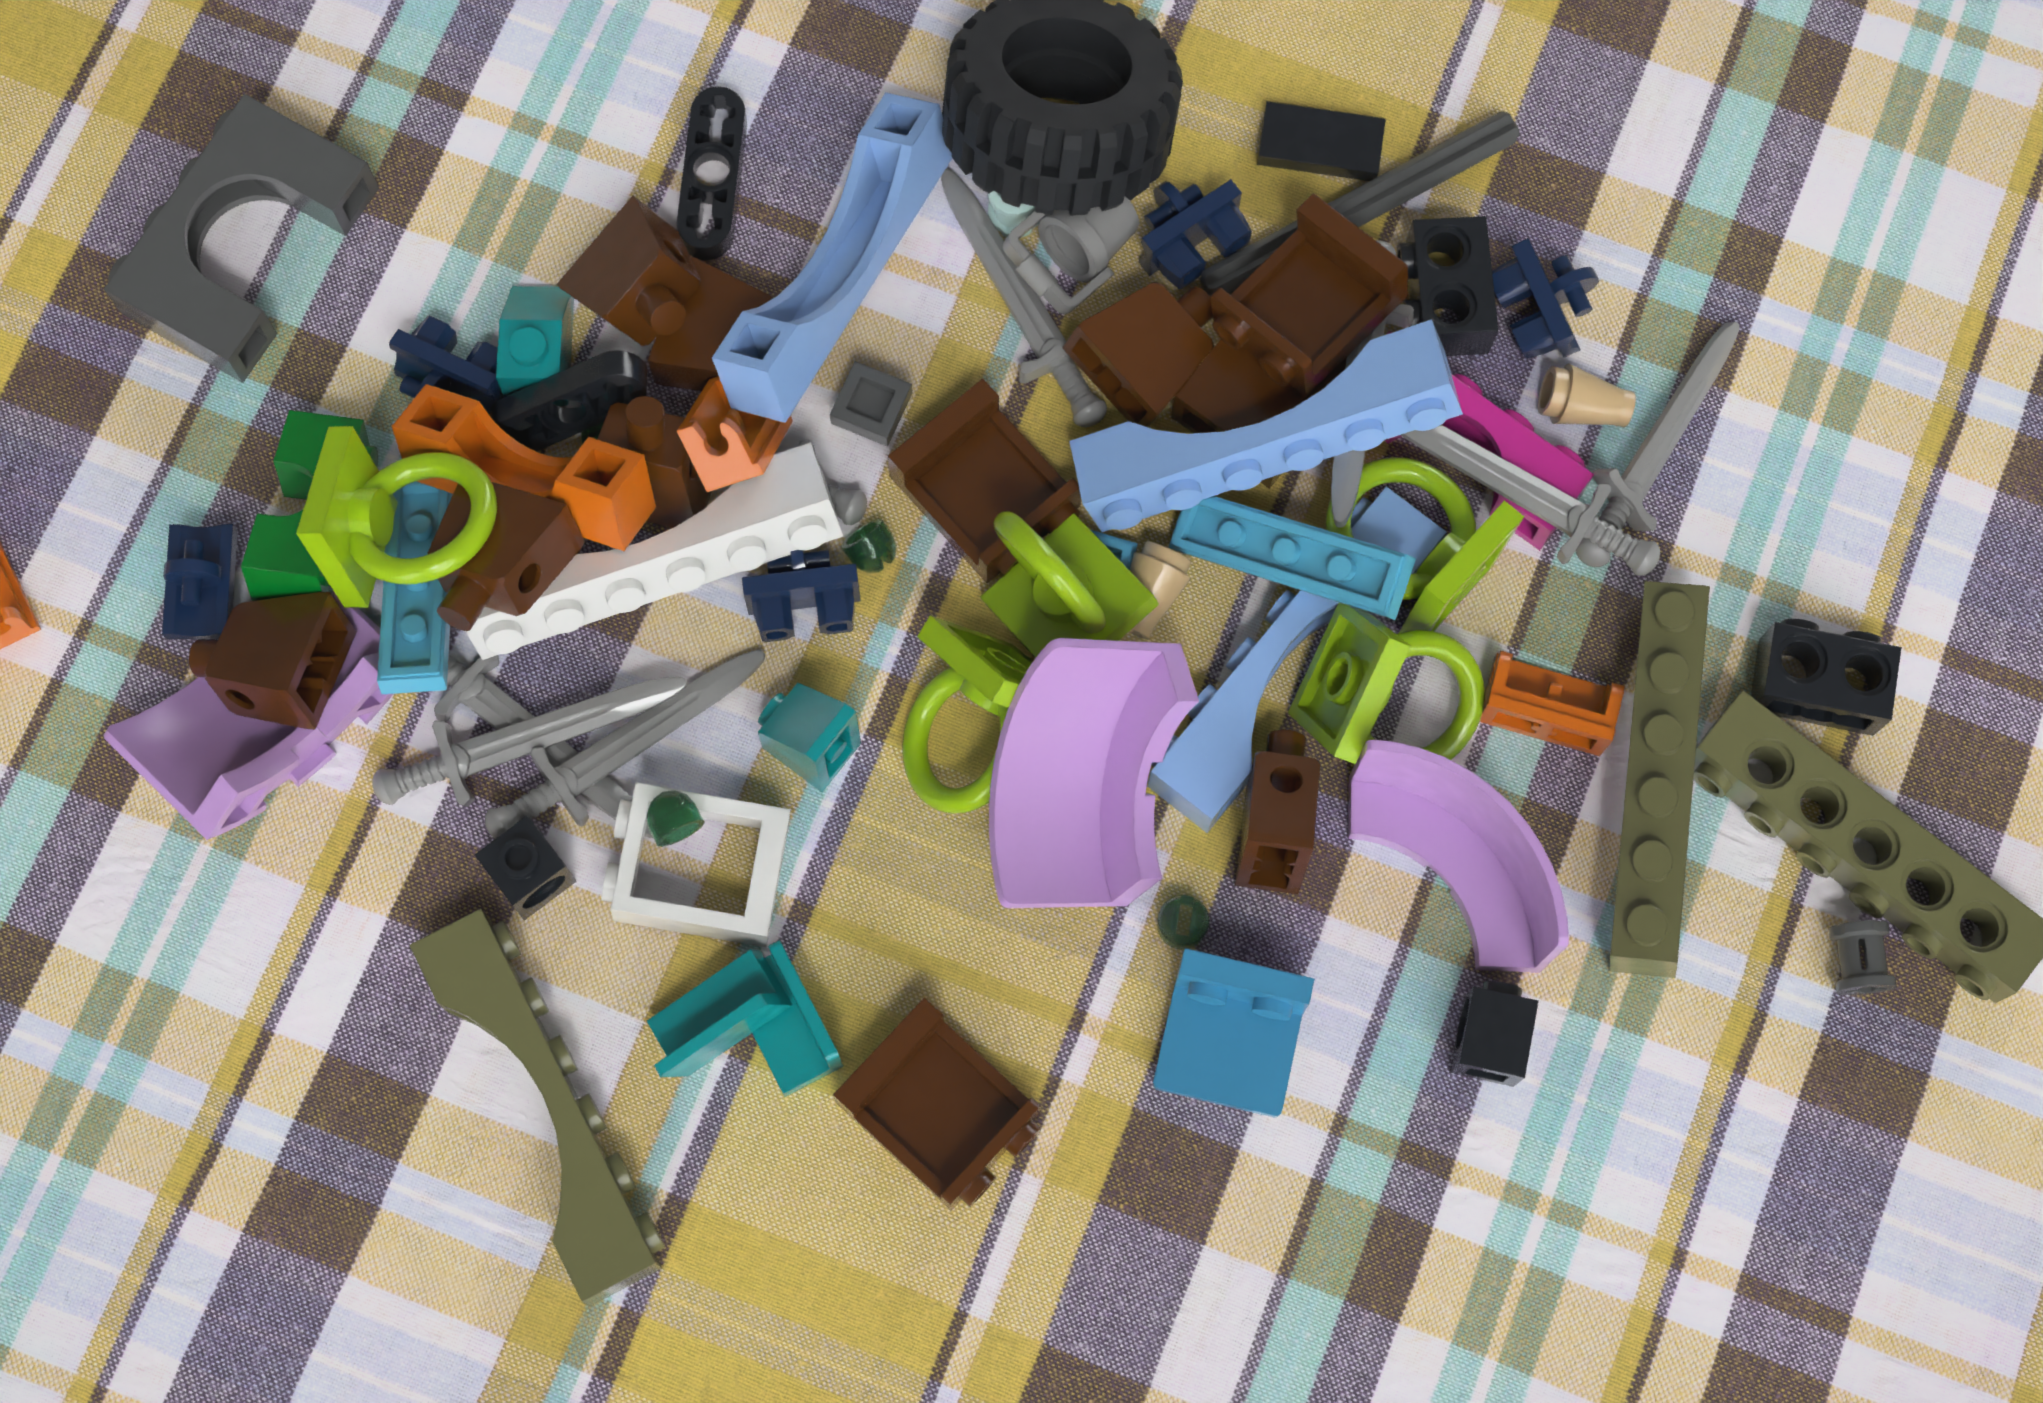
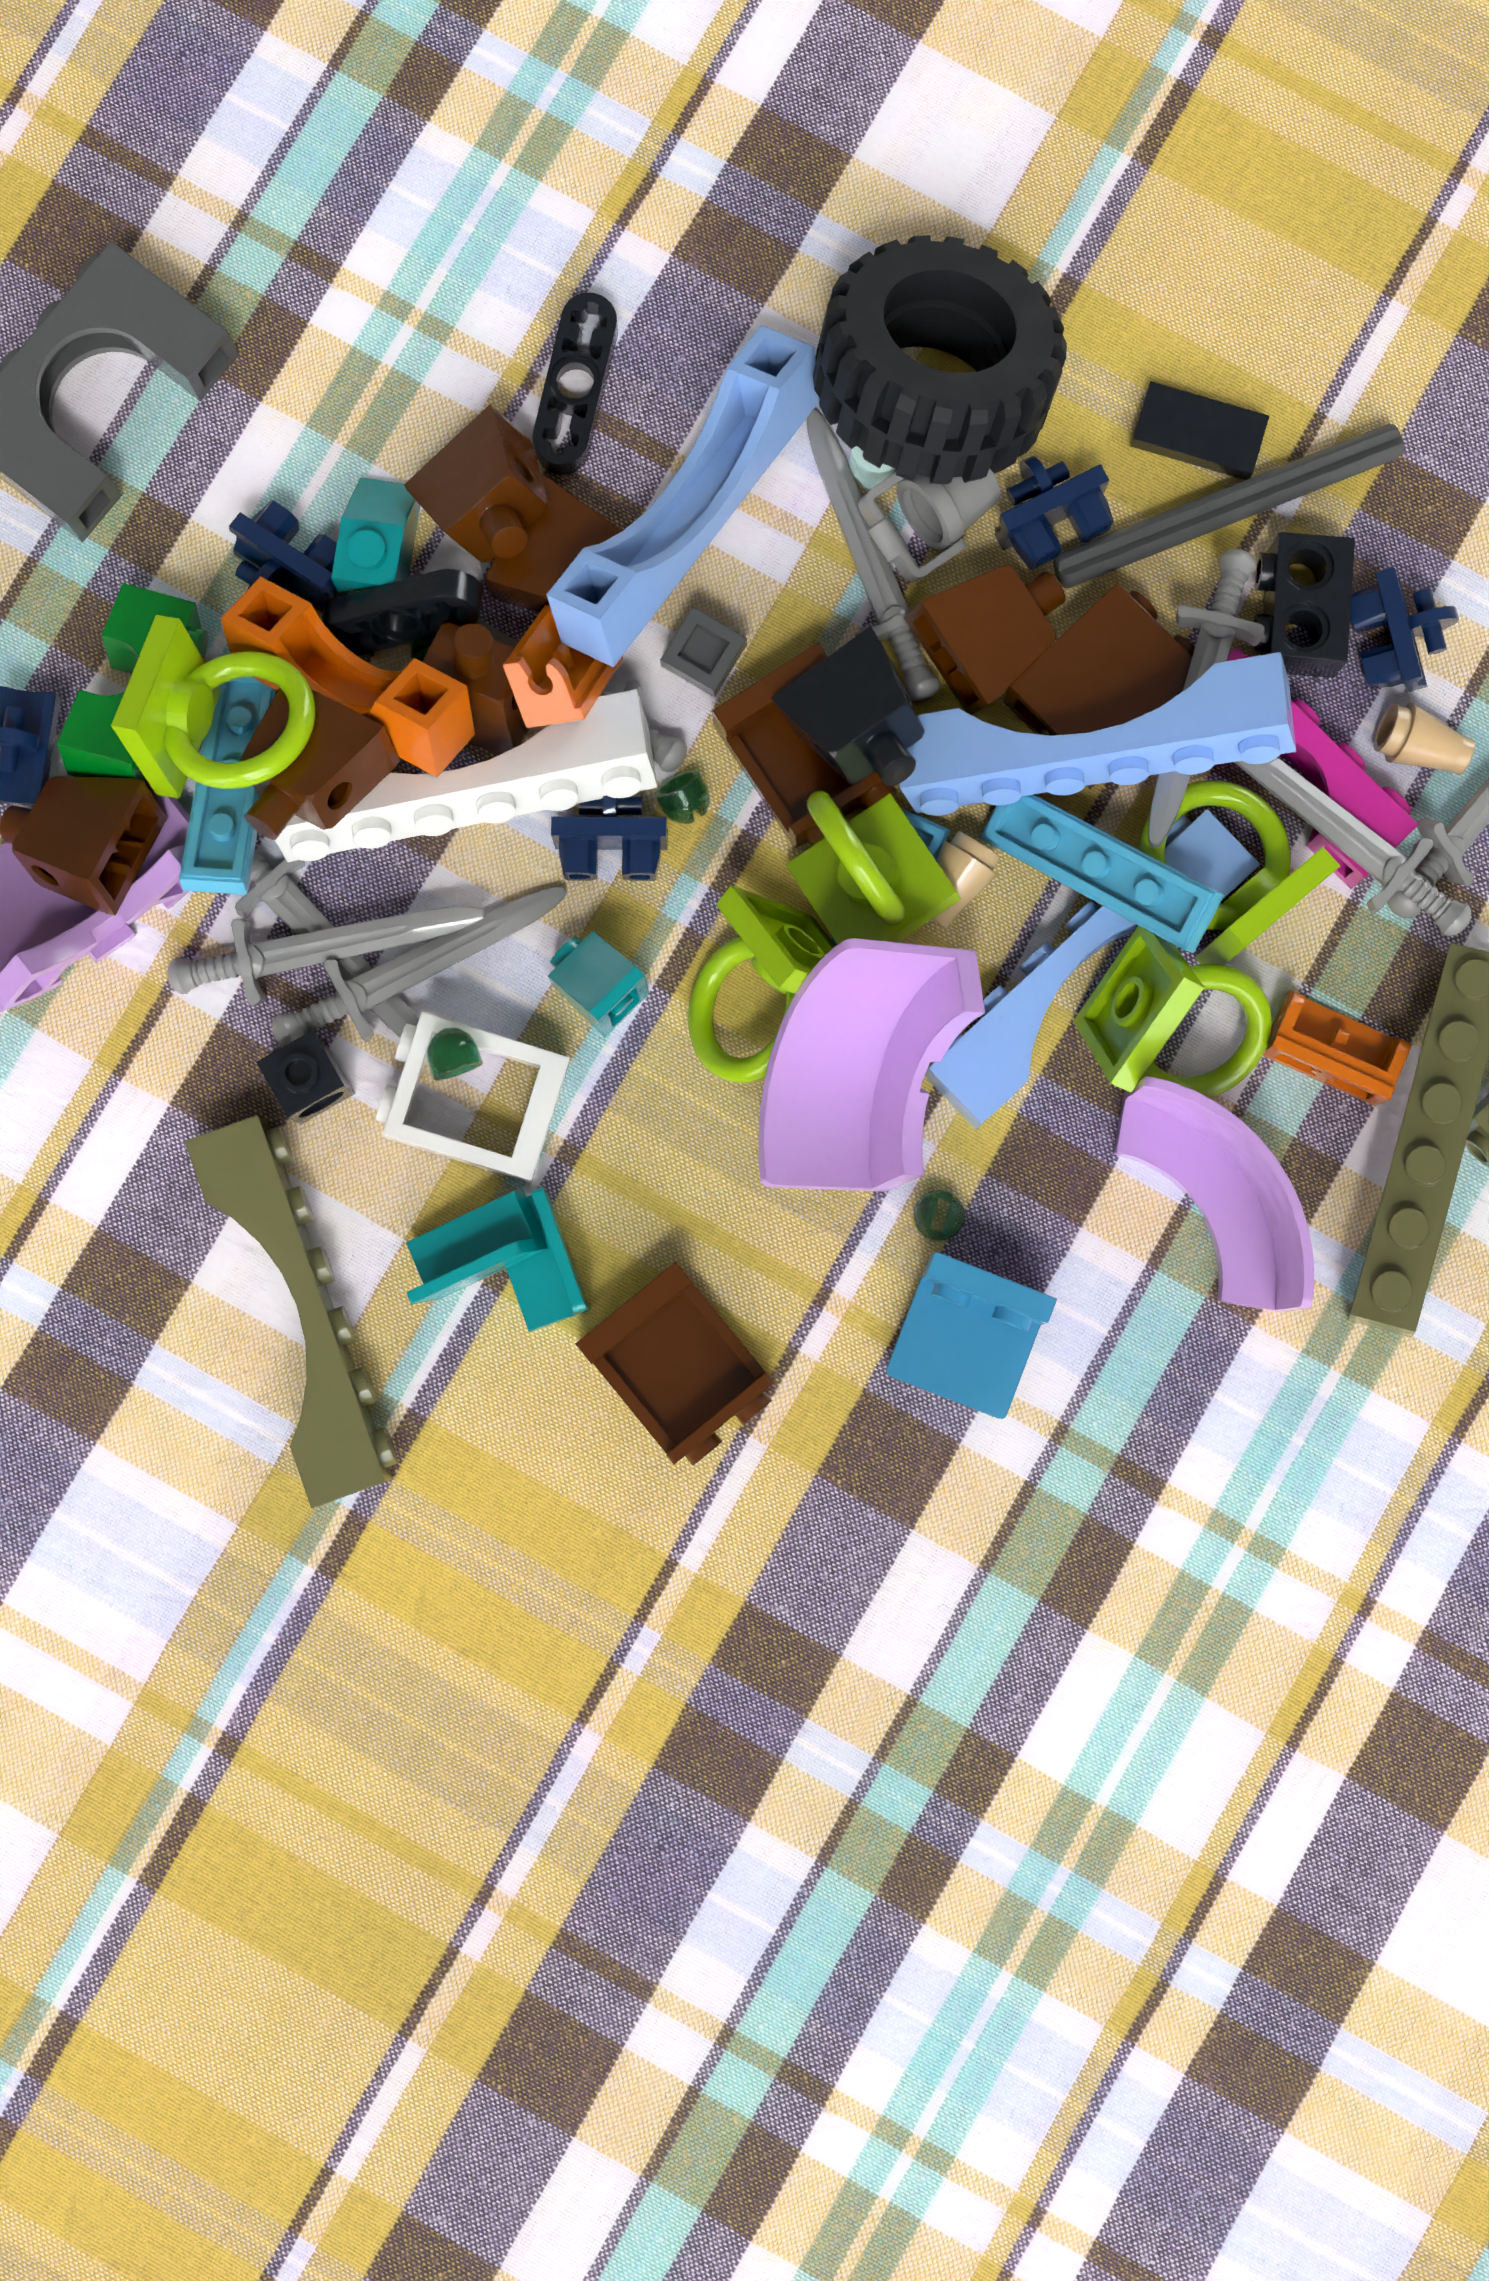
camera: 10 degrees right, 10 degrees up
(1027, 439) = (855, 712): none -> black torso
(1279, 815) = (1048, 1126): reddish brown torso -> none
(1312, 298) = (1162, 605): reddish brown panel -> none
(1494, 1034) = (1225, 1369): black brick -> none

